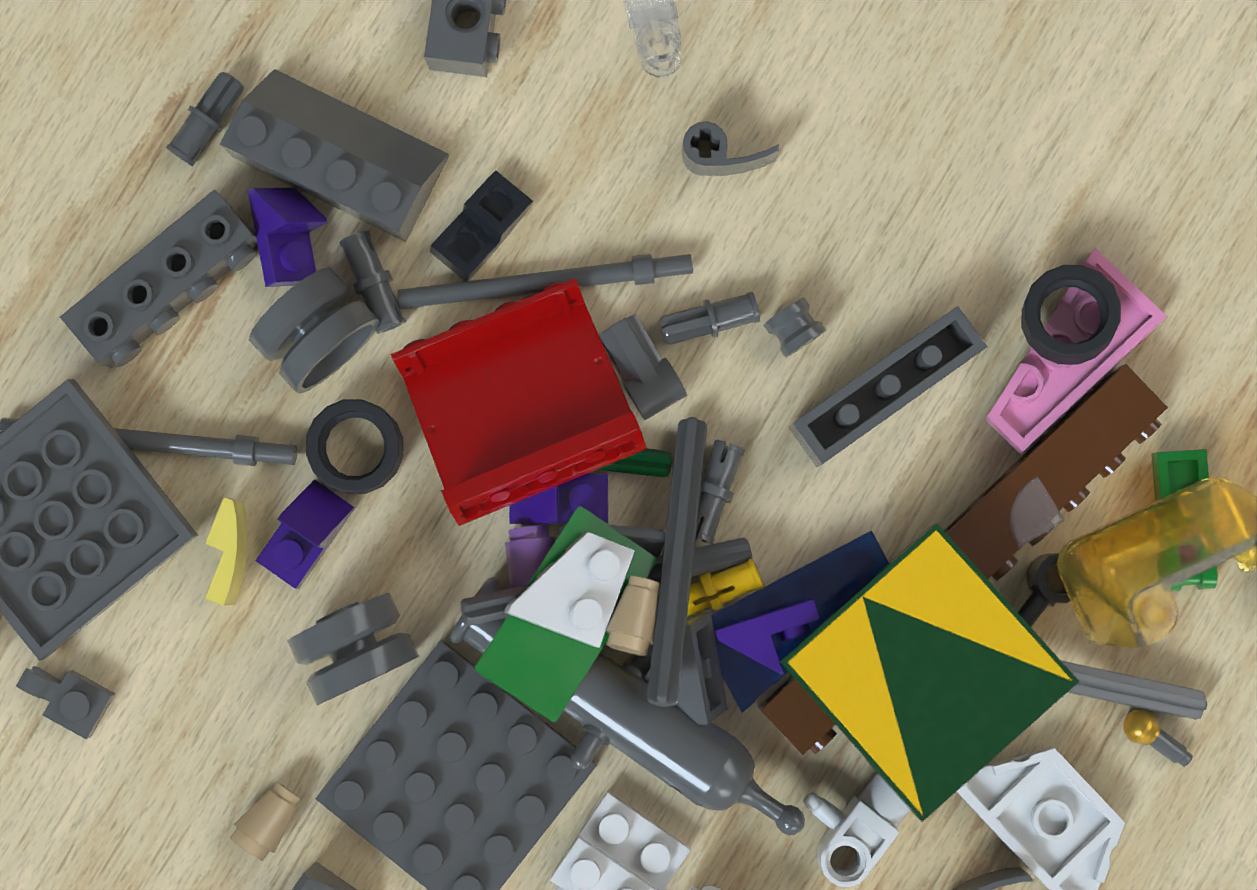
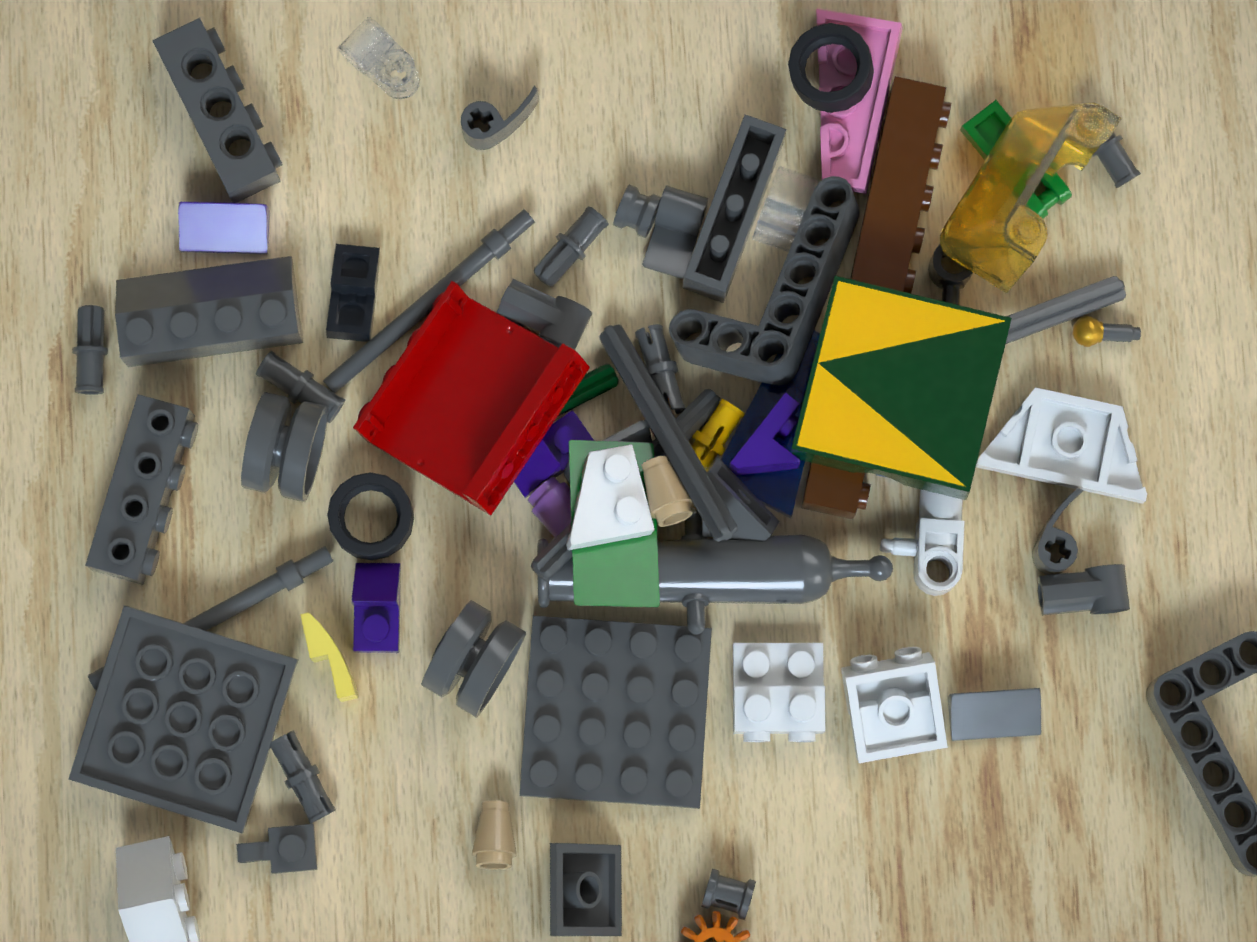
camera: 40 degrees left, 5 degrees down
(130, 645) = (302, 777): none -> dark grey pin
(282, 233) = (205, 391): dark purple slope -> none
(403, 86) = (223, 227): none -> slope
(816, 370) = (675, 232): none -> dark grey panel
(876, 507) = (786, 299): none -> dark grey beam
(935, 419) = (784, 208): none -> clear panel
(1033, 513) = (901, 226): clear tile -> none

